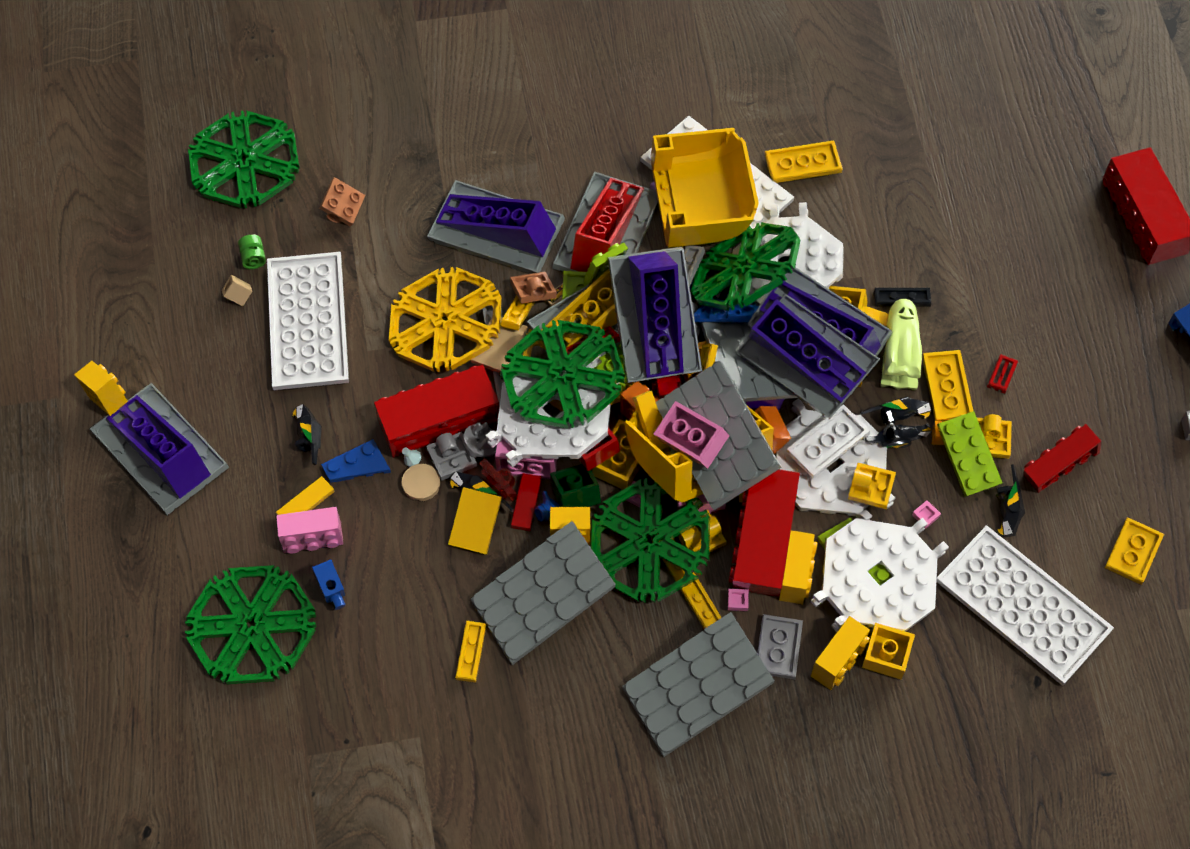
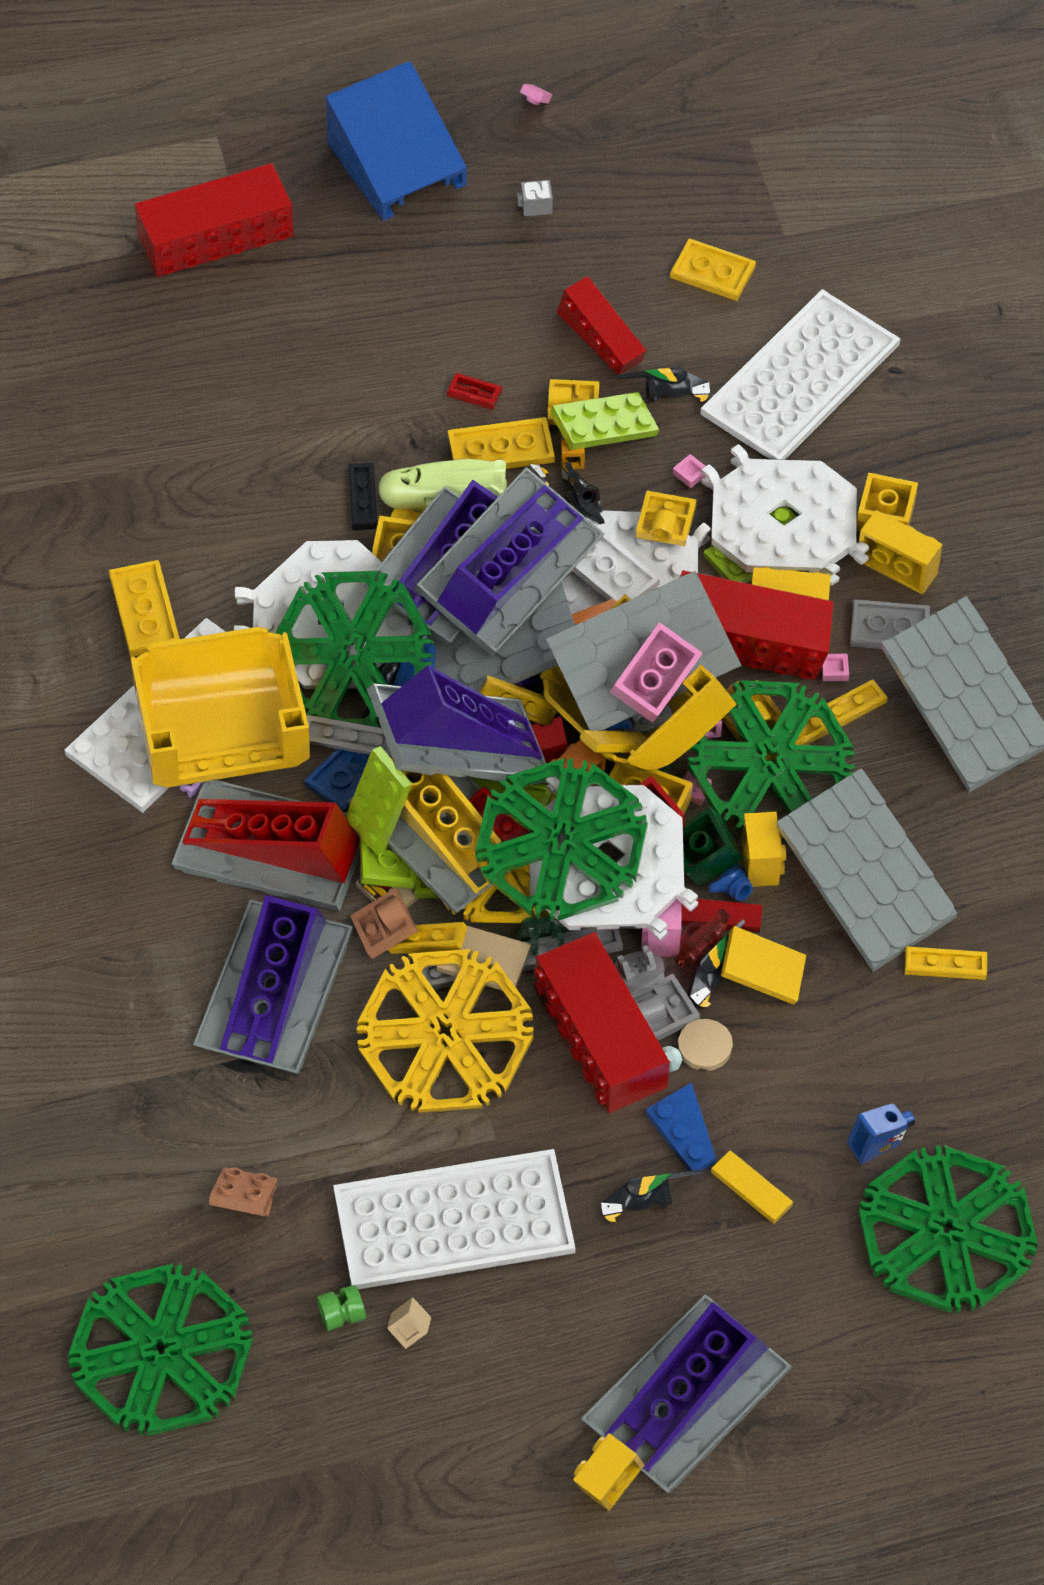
camera: 95 degrees left, 5 degrees down
(309, 530) = (806, 1161): bright pink brick -> none

